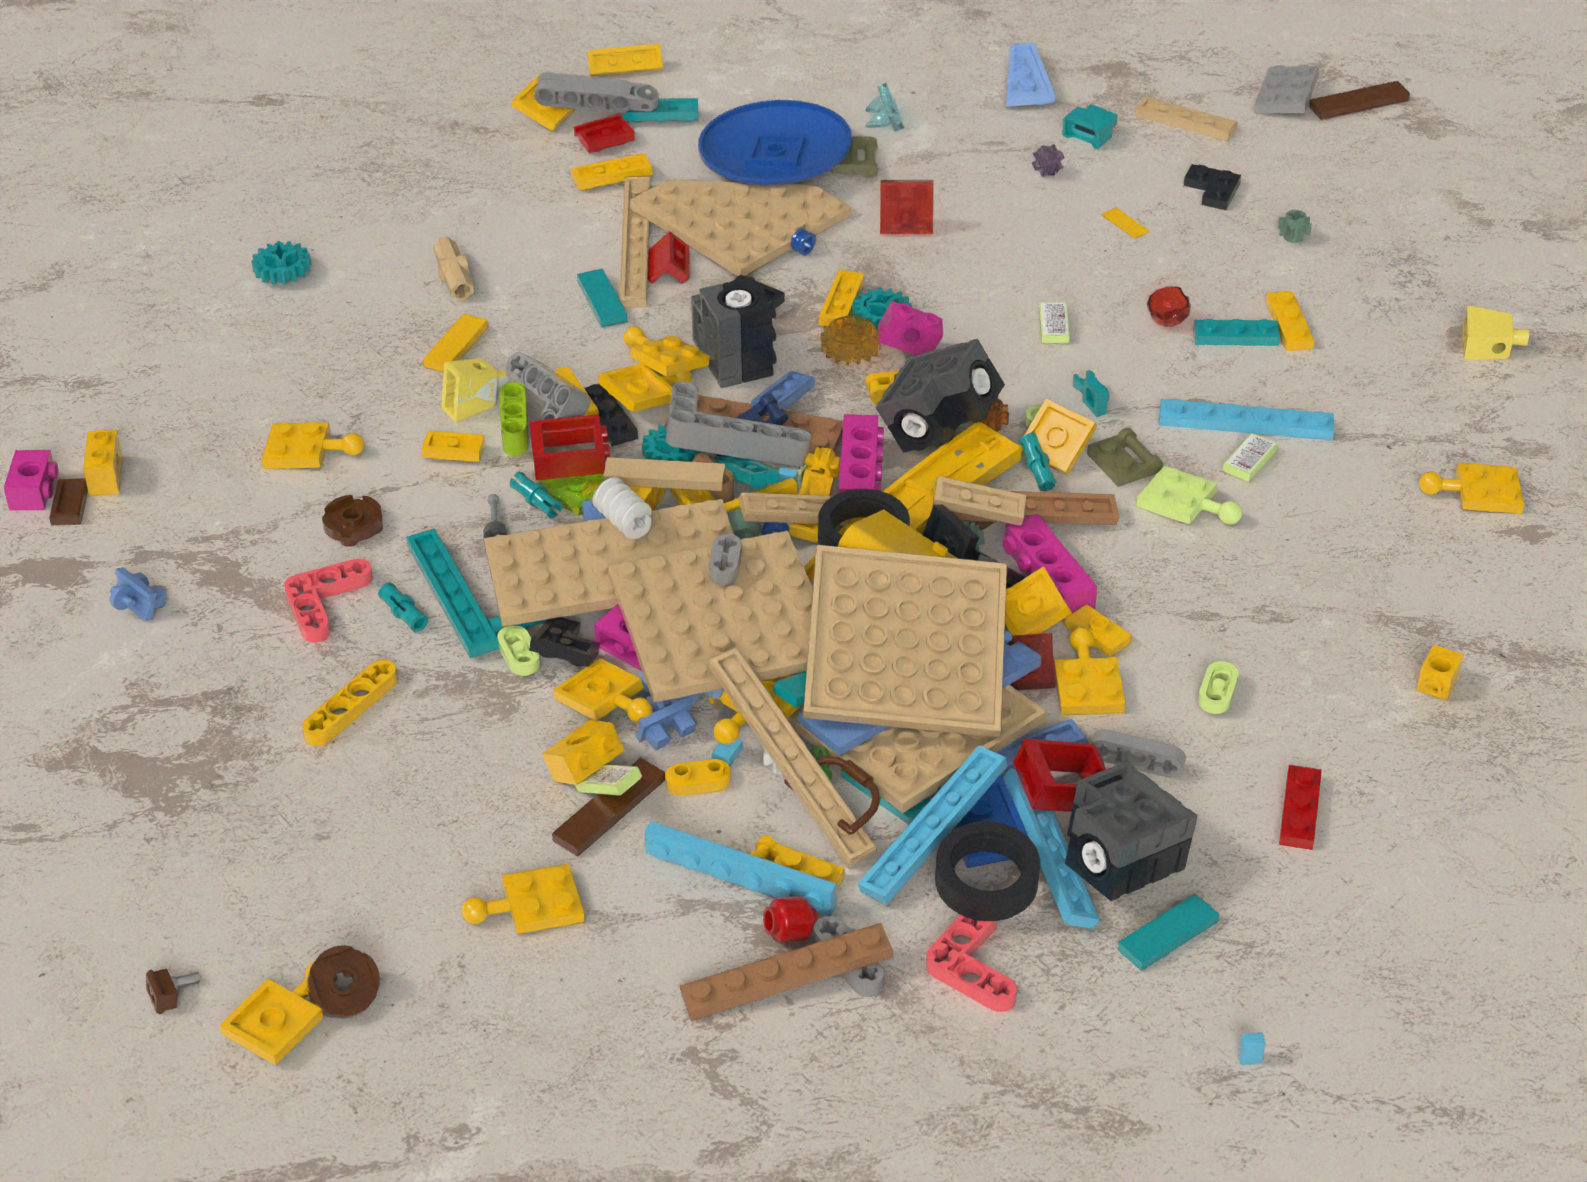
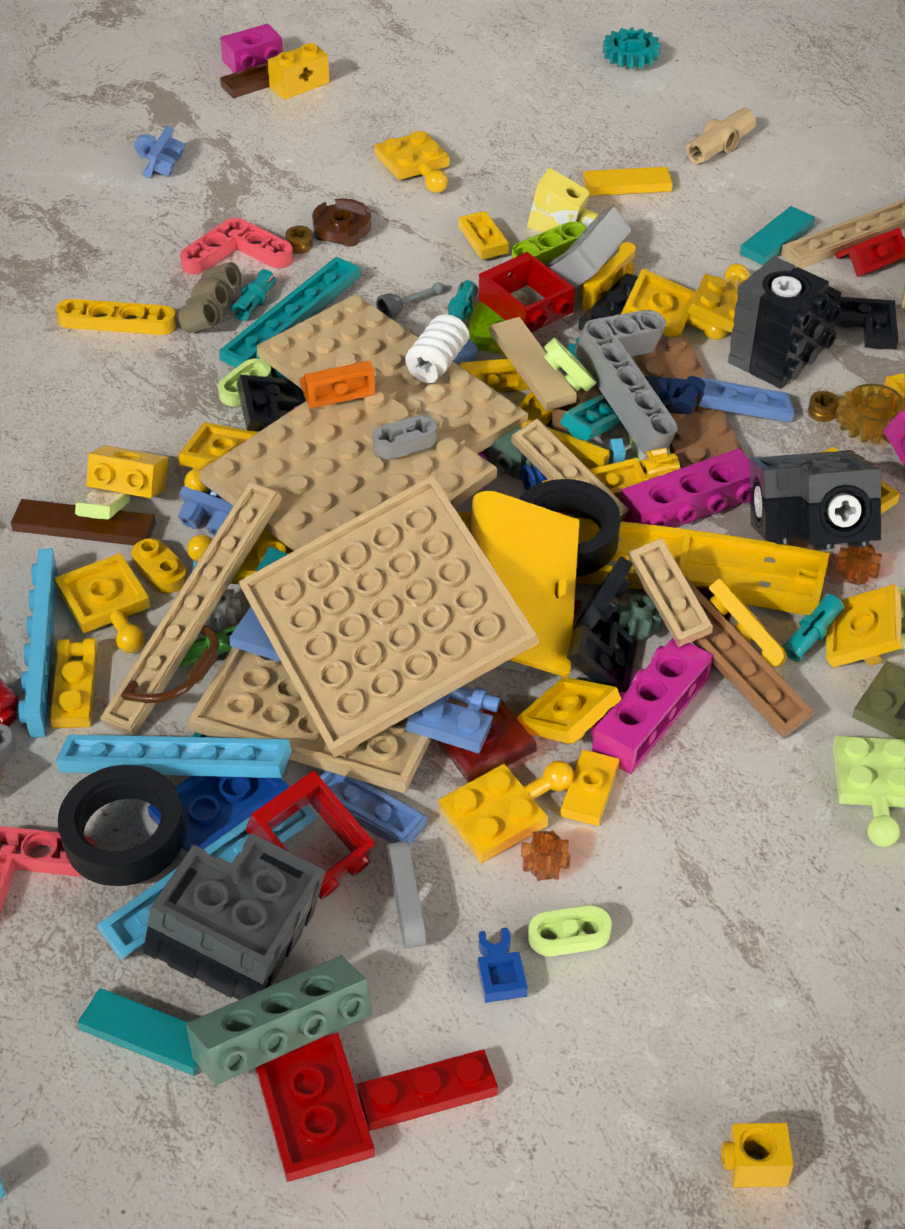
camera: 60 degrees right, 5 degrees up
(347, 547) = (299, 238): none -> pearl gold bush
(392, 629) = (210, 297): none -> dark tan piece
(630, 571) = (338, 384): none -> orange panel
(700, 449) = (562, 358): none -> yellowish green plate
(720, 817) = (106, 595): none -> yellow plate
(815, 361) = (823, 406): none -> pearl gold bush
(1019, 482) = (749, 626): none -> yellow plate
(1149, 672) = (545, 855): none -> clear orange gear
(1217, 849) = (278, 1019): none -> sand green brick
(1230, 733) = (499, 970): none -> blue plate
(1285, 863) = (314, 1109): none -> red plate

